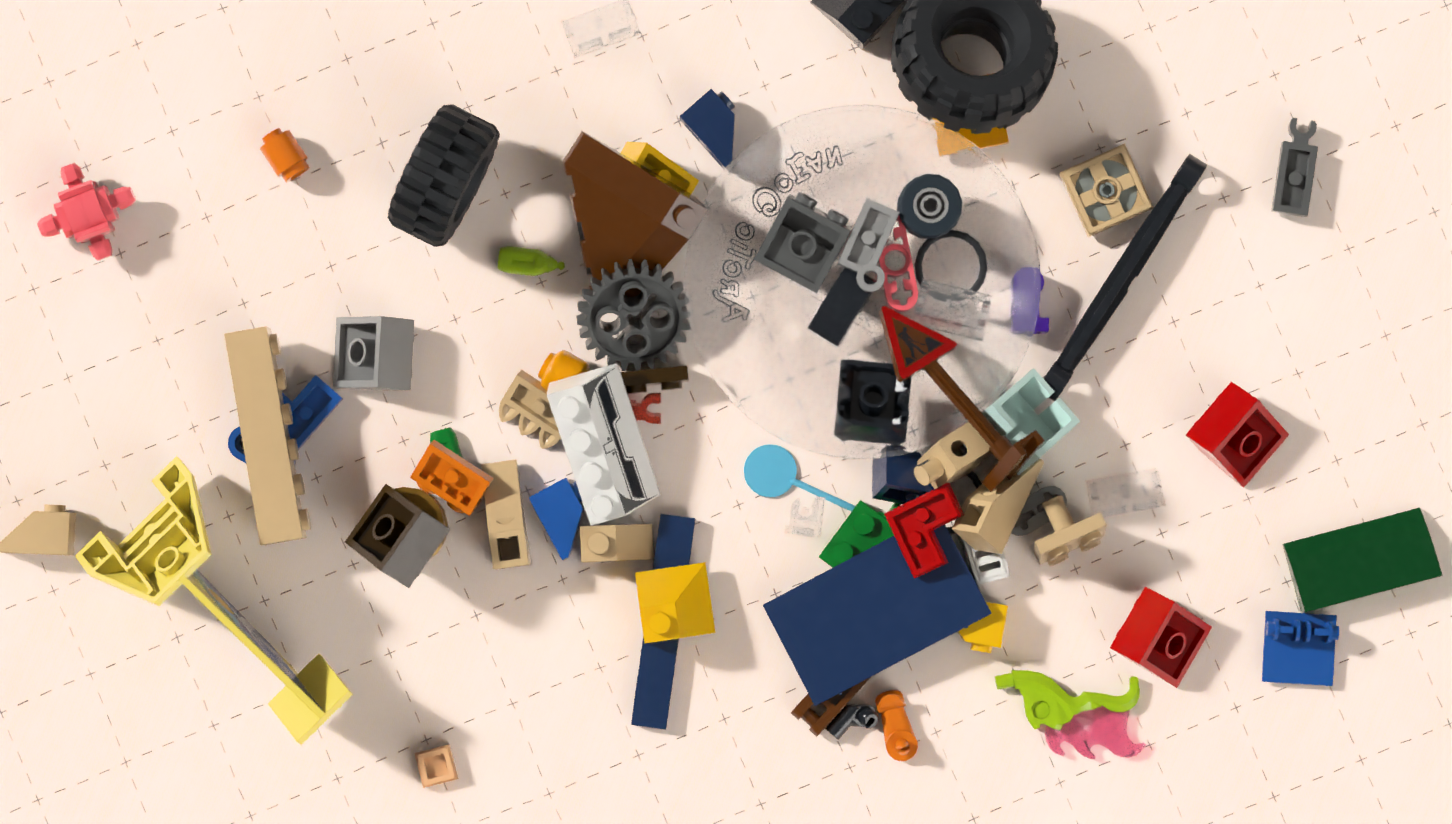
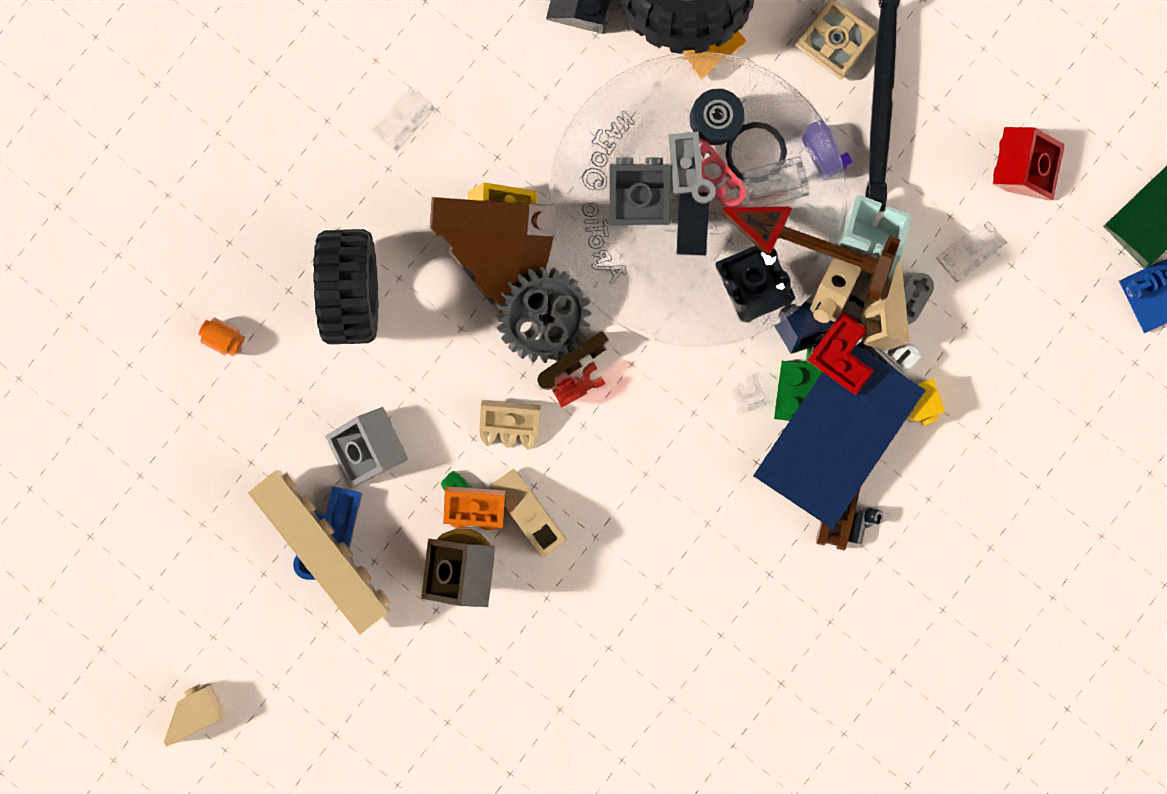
camera: 35 degrees left, 0 degrees up
(86, 211) = (97, 458): coral piece -> none
(166, 554) = (295, 679): light yellow piece -> none
(436, 766) = (578, 725): light nougat tile -> none
(526, 261) = (442, 319): lime piece -> none
(560, 514) = (568, 489): blue slope -> none
(561, 366) = (516, 386): light orange head -> none
(603, 443) = (572, 421): white slope -> none
(616, 542) = (621, 489): tan slope -> none
(659, 657) = (686, 528): dark blue tile -> none
(675, 602) = (688, 509): yellow slope -> none
(712, 125) = (524, 146): dark blue slope -> none
(773, 471) = (705, 374): medium azure piece -> none
(897, 730) = (900, 513): orange piece -> none
(1067, 534) = (947, 301): tan plate -> none
(1078, 720) = (1026, 434): piece -> none
(1161, 637) = (1054, 340): red slope -> none

